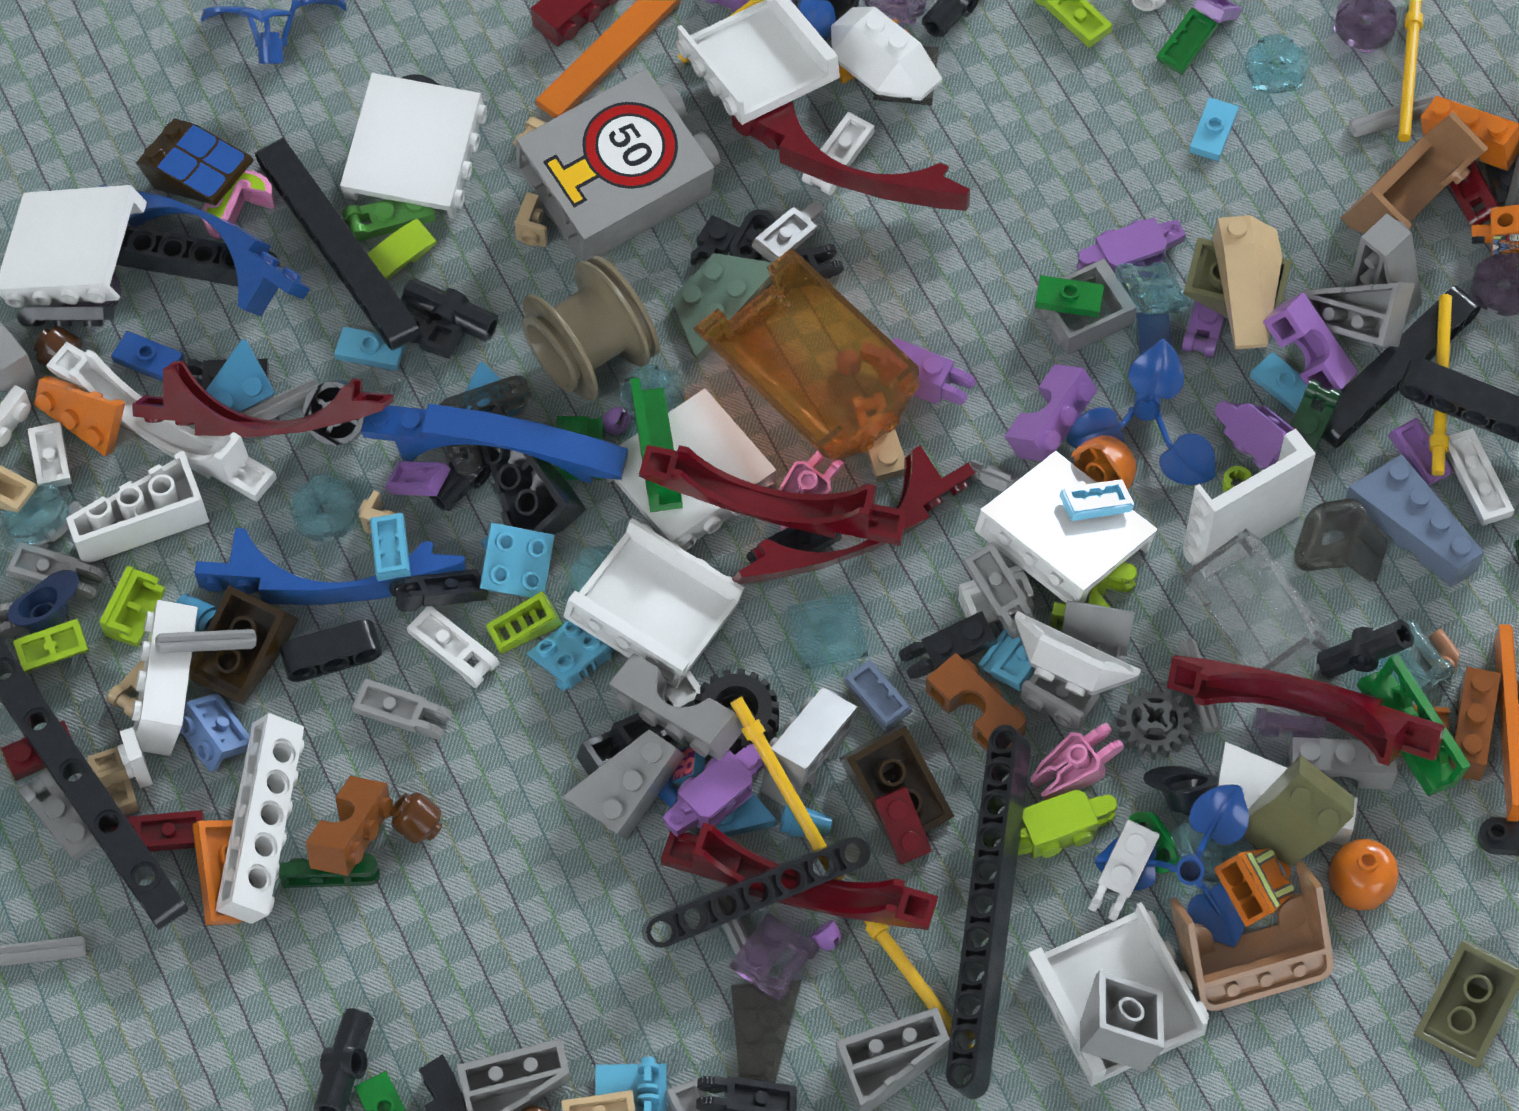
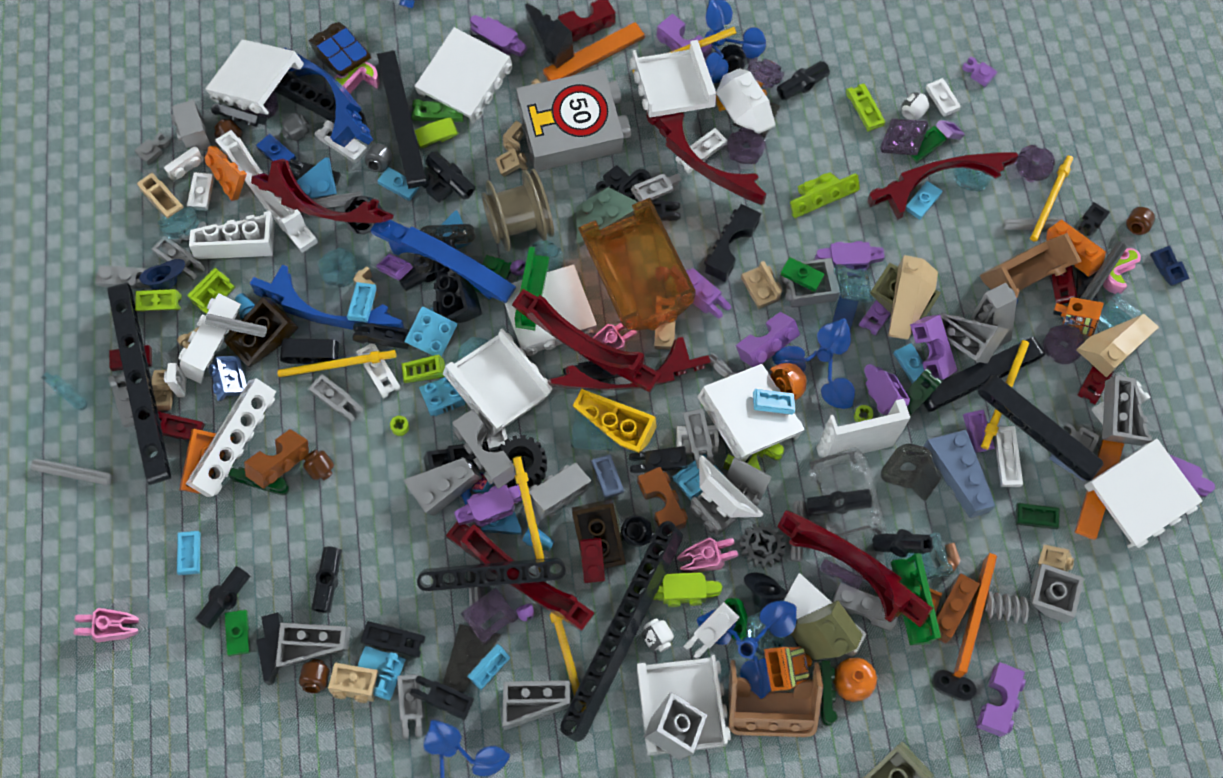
camera: 15 degrees right, 5 degrees up
(166, 308) = (295, 127): none -> dark grey head
(259, 1015) = (188, 552): none -> medium azure plate
(275, 320) = (353, 150): none -> white plate
(323, 316) = (378, 157): none -> dark grey head
(442, 64) = (498, 35): none -> medium lavender hinge
(442, 625) = (374, 357): none -> yellow bar
(501, 1003) = (329, 566): none -> black piece
(519, 731) = (401, 419): none -> lime bush
(536, 43) = (552, 36): none -> black wedge
(541, 260) = (511, 161): none -> tan bracket
(635, 1041) = (392, 639): none -> black plate
(802, 1032) = (489, 666): none -> medium azure plate
(872, 605) = (620, 422): none -> yellow wedge
(906, 141) = (744, 155): none -> clear purple plate
(936, 314) = (742, 224): none -> black arch
(954, 761) = (636, 531): none -> black hair
(1011, 333) = (762, 285): none -> tan bracket
(1043, 904) = (657, 635): none -> white head
(1052, 162) = (822, 192): none -> lime bracket
(1150, 39) = (904, 136): none -> clear purple plate
(1172, 125) = (898, 192): none -> dark red slope
(1229, 631) = (852, 501): none -> black piece
(1342, 936) = (828, 715): none -> dark green plate
(1484, 79) = (1093, 217): none -> black plate

